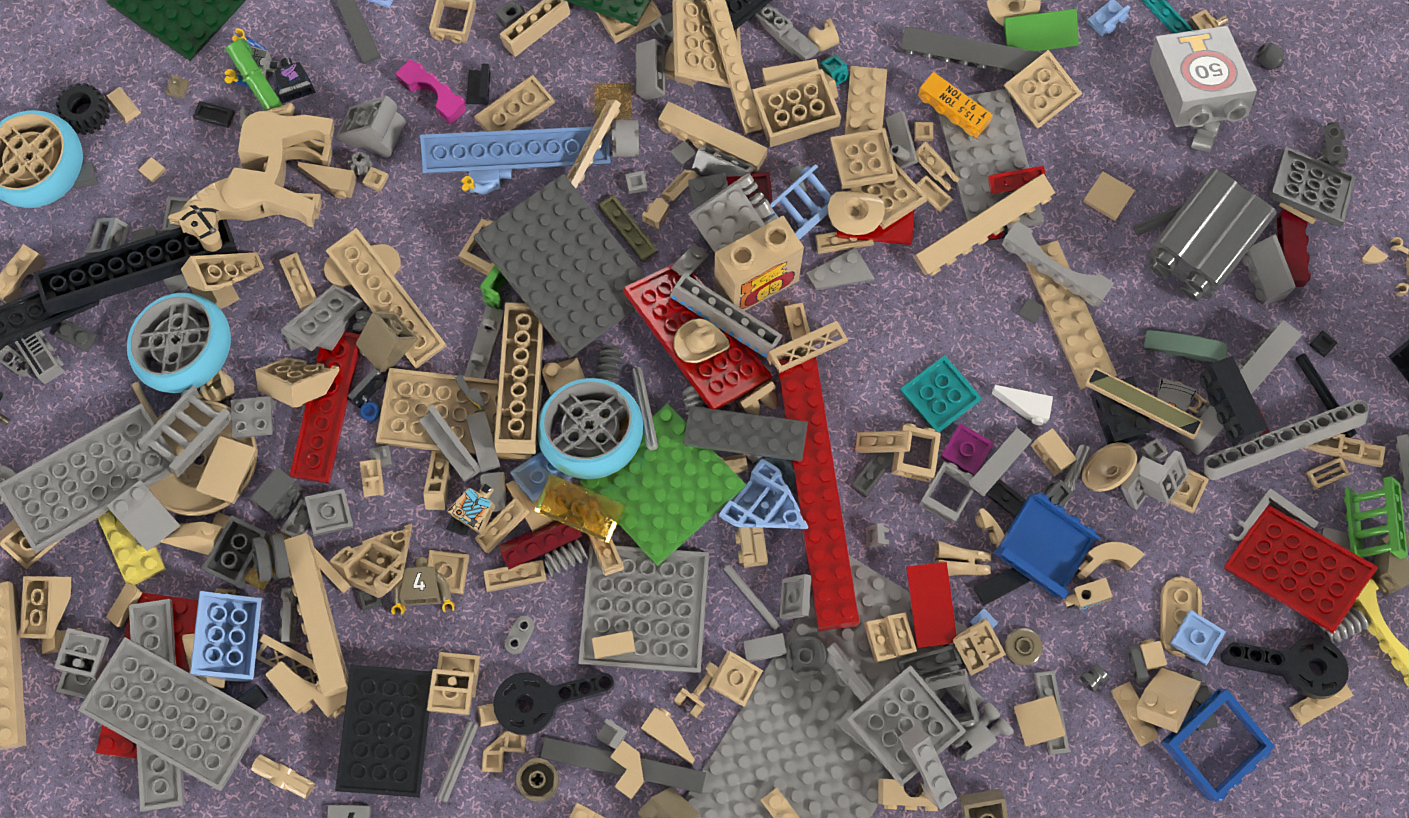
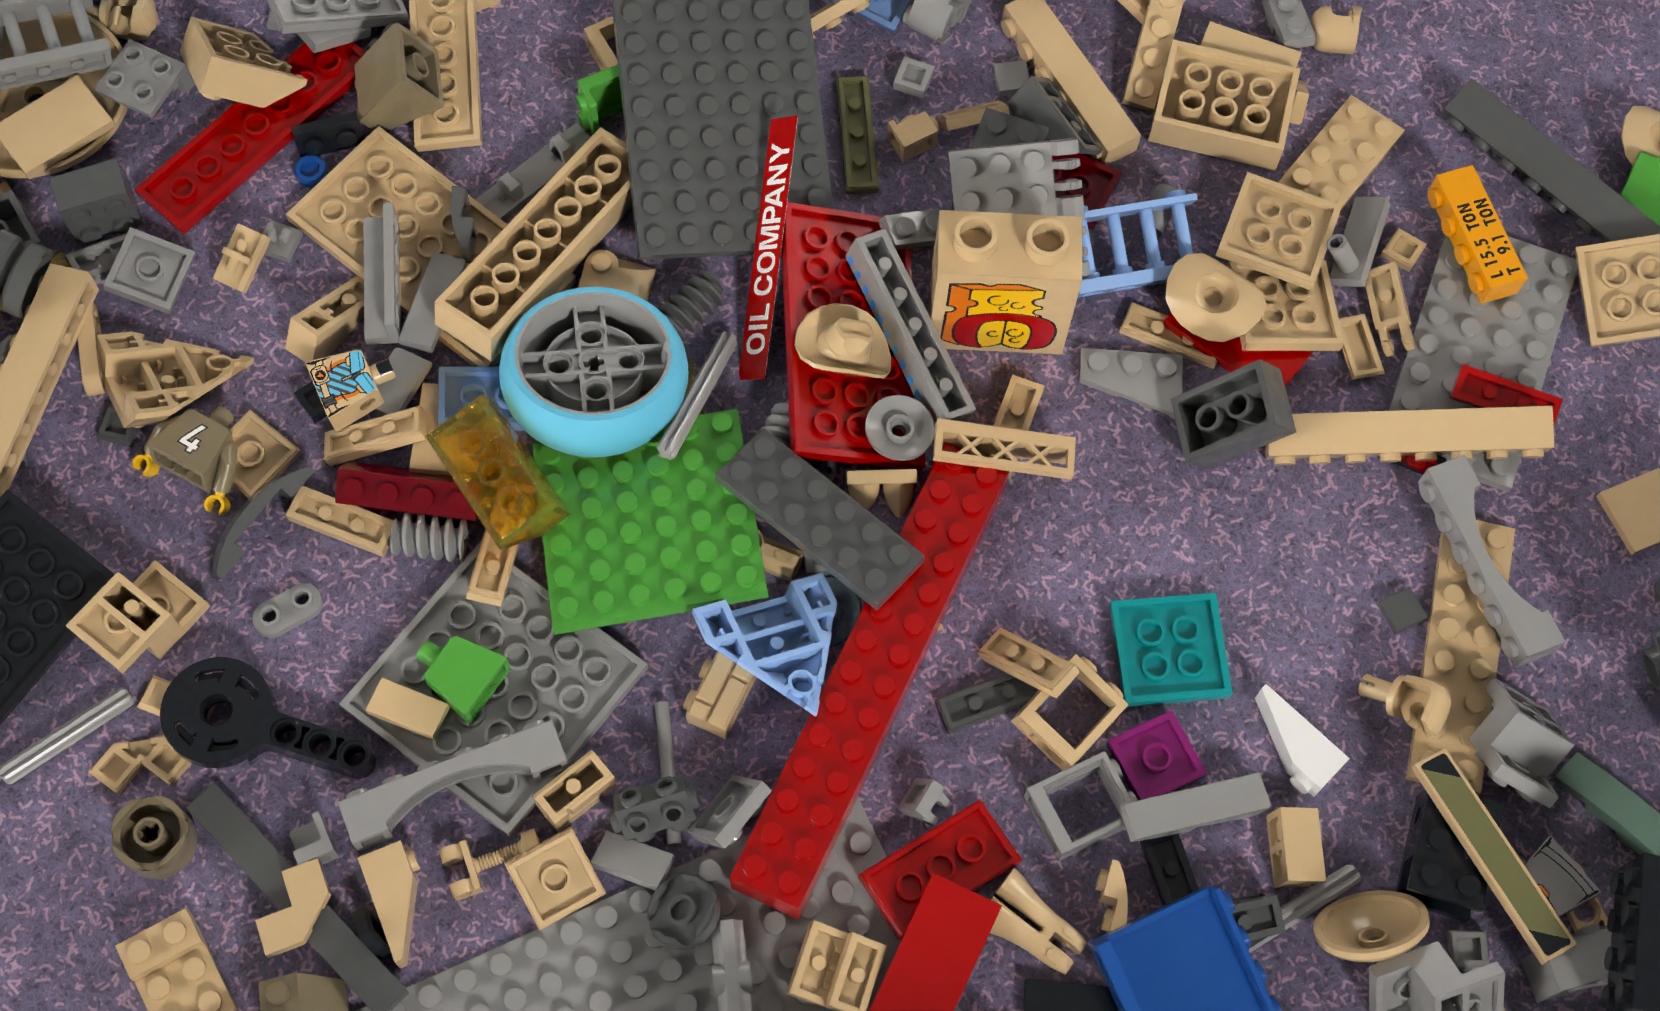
camera: 30 degrees right, 5 degrees down
(472, 627) = (227, 551): none -> dark grey slope
(628, 612) = (463, 674): none -> bright green torso
(629, 314) = (768, 248): none -> red sticker
(670, 757) = (370, 932): none -> black tile
(688, 627) = (376, 812): none -> light grey arch
(718, 633) = (575, 791): none -> tan brick
(752, 358) = (902, 414): none -> light grey dish
(760, 617) = (654, 807): none -> dark grey brick
(836, 69) = (1324, 88): teal bracket -> none
(901, 265) = (1233, 415): none -> dark grey brick
(908, 548) = (962, 849): none -> red tile
(1060, 352) = (1409, 697): none -> tan piece
(1122, 342) = (1520, 744): none -> light grey bracket

